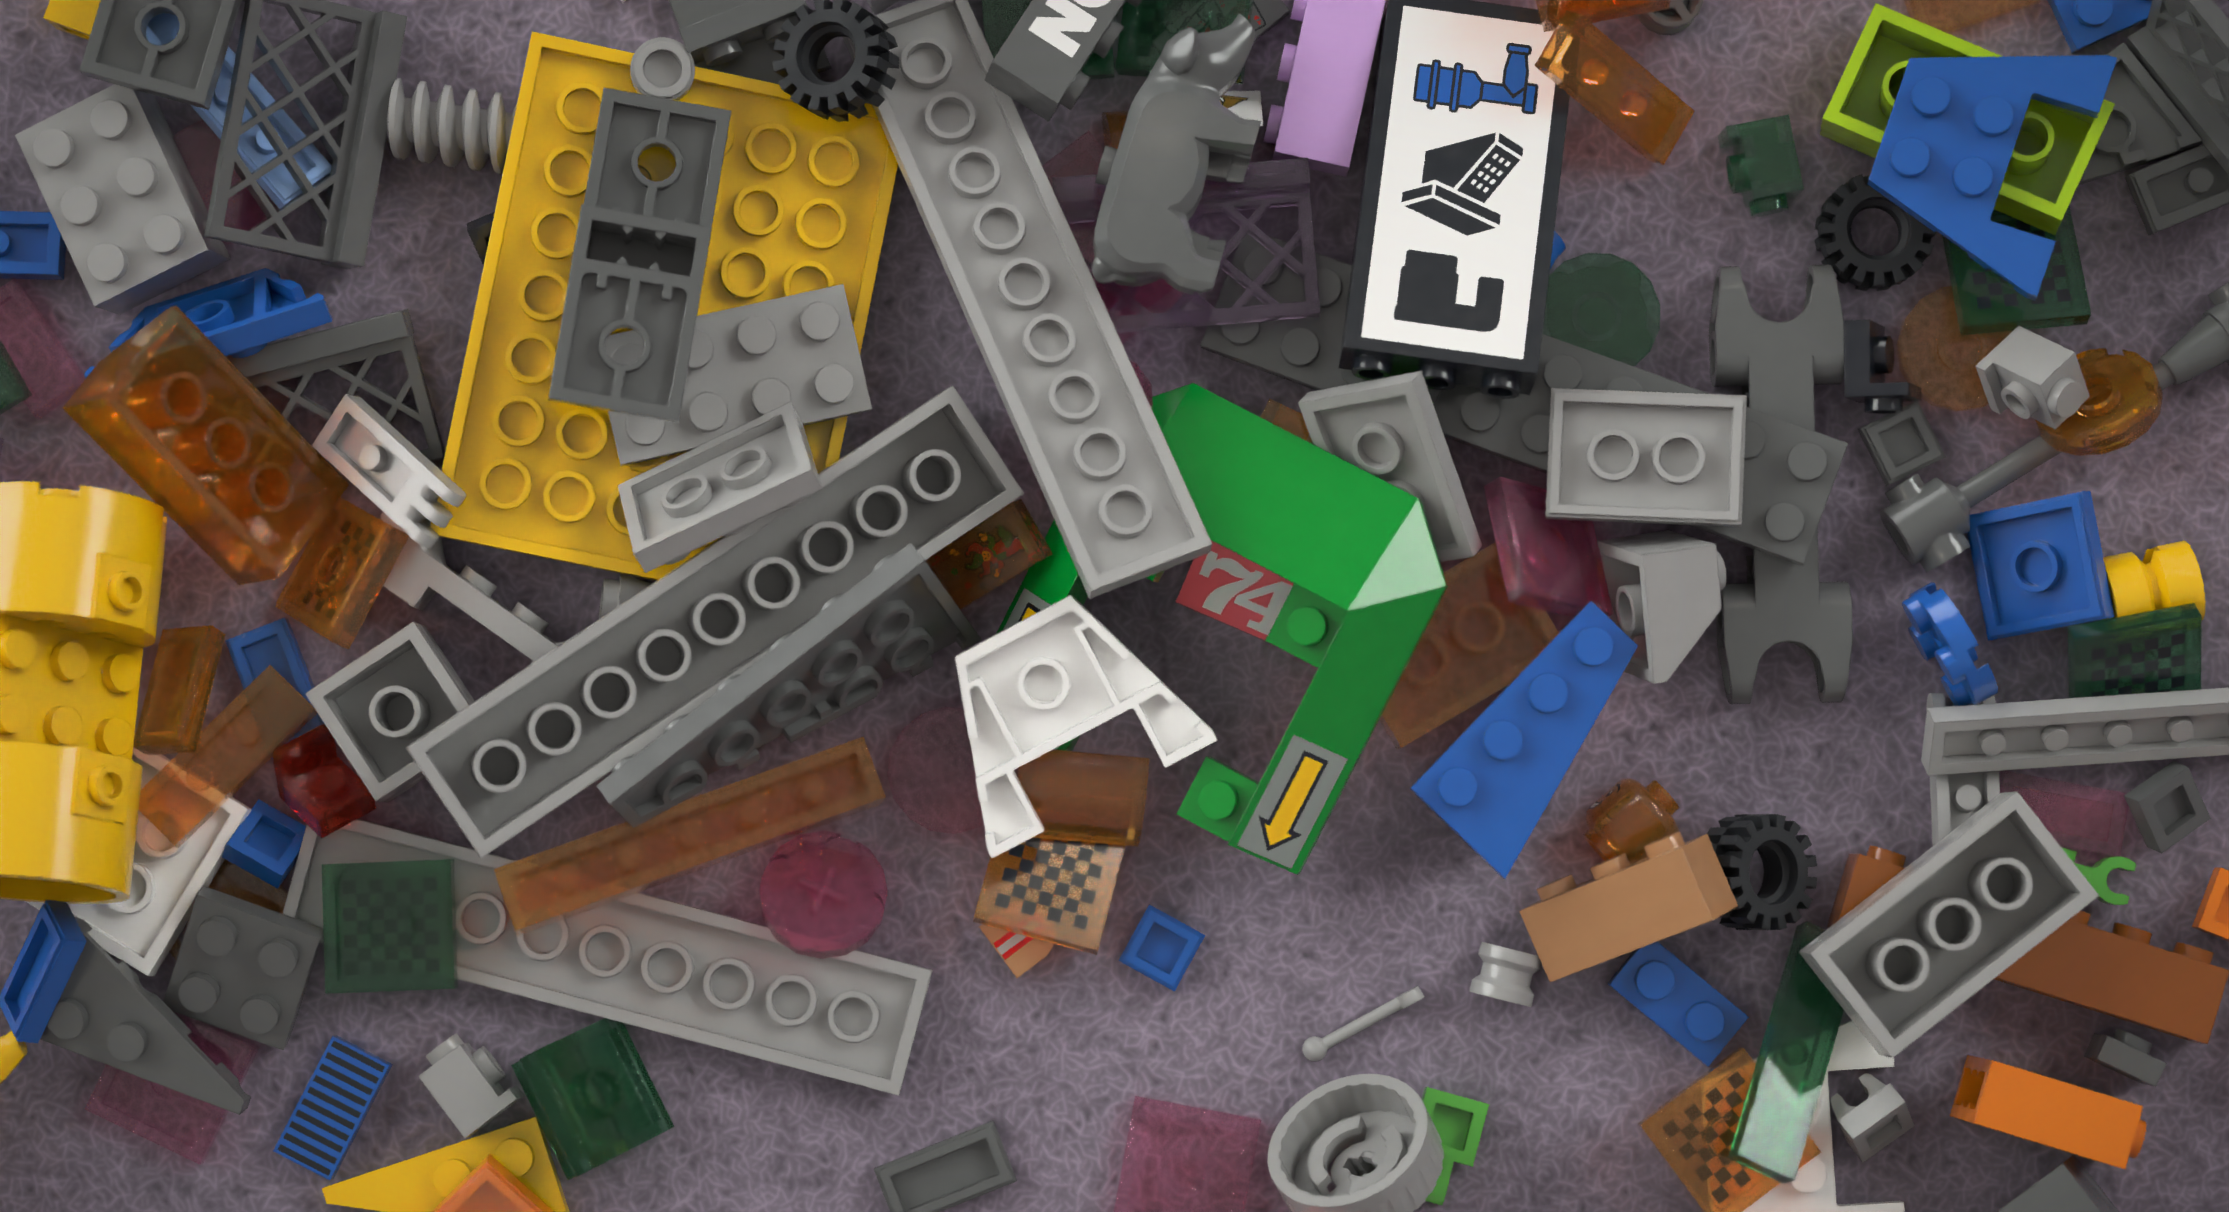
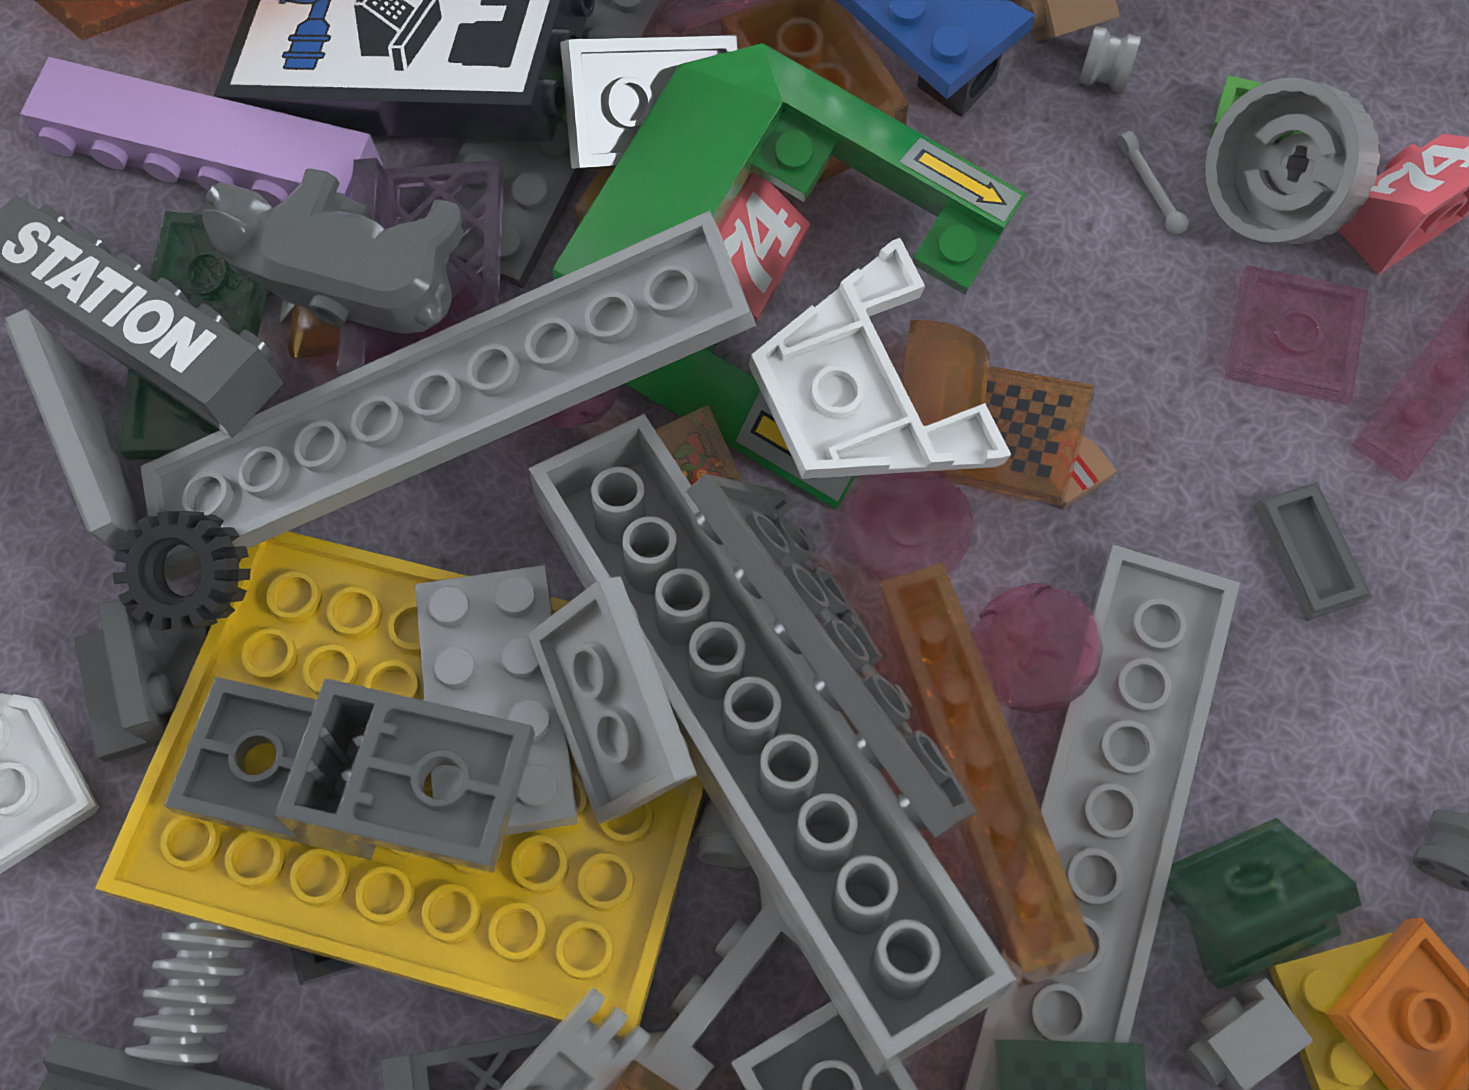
camera: 80 degrees left, 15 degrees down
(662, 69) = (158, 749): light grey tile -> none
(1161, 947) = (1084, 345): blue tile -> none

